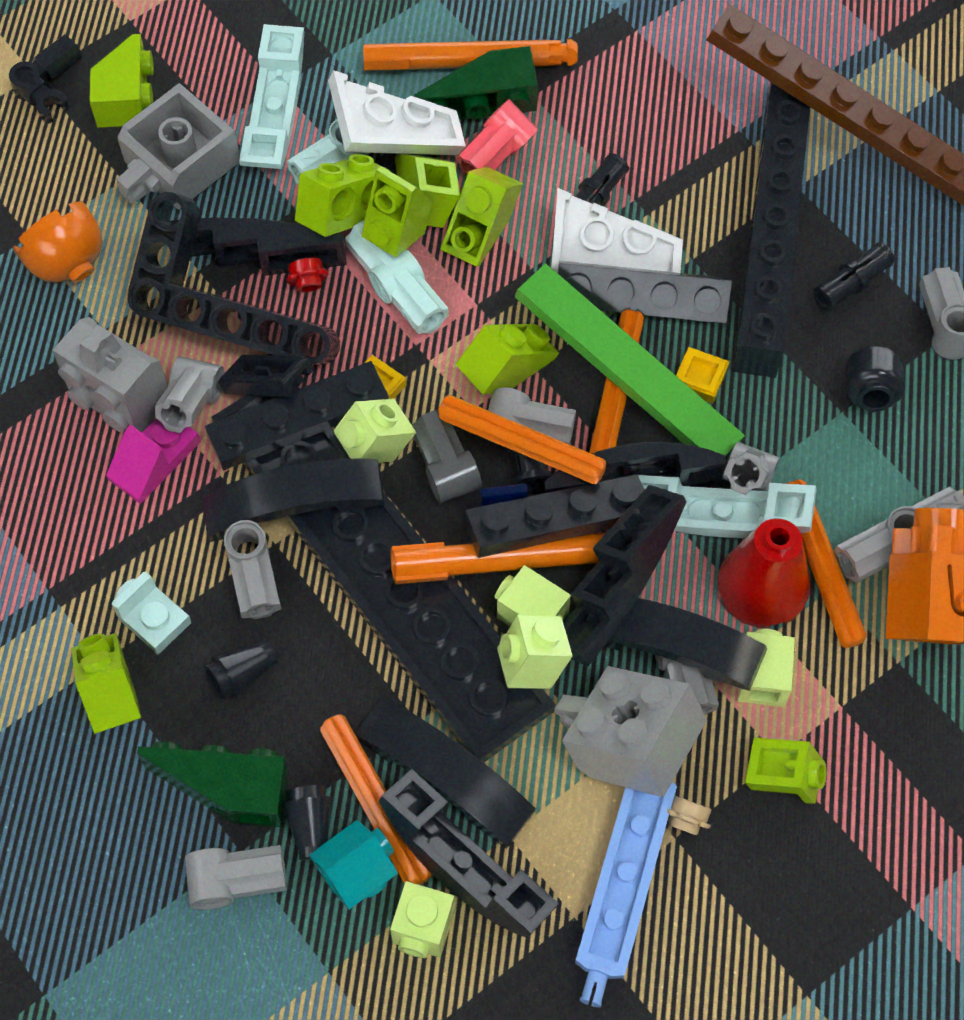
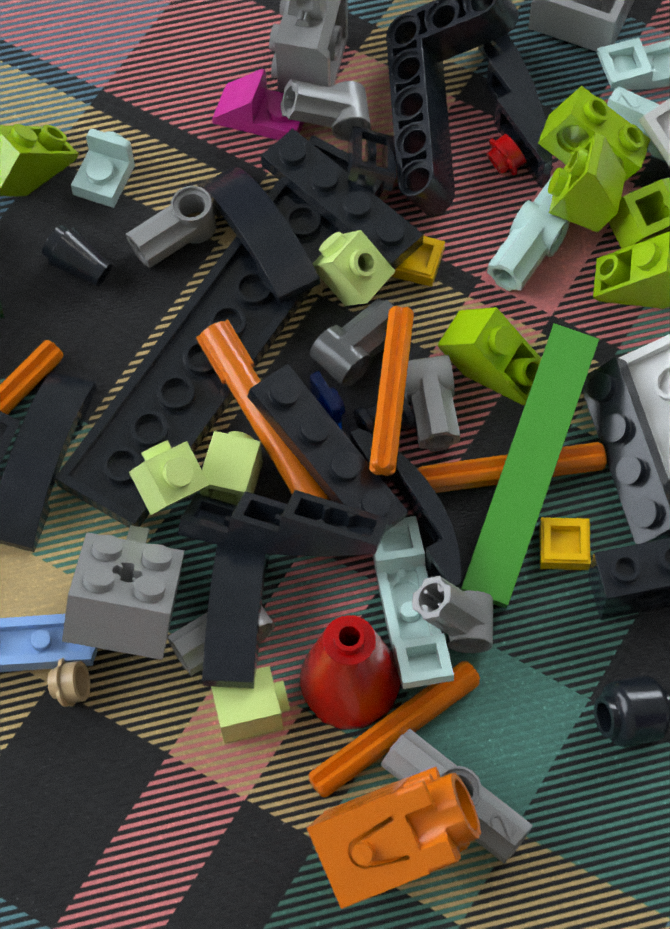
camera: 70 degrees right, 0 degrees up
(786, 768) = (148, 759): lime bracket -> none

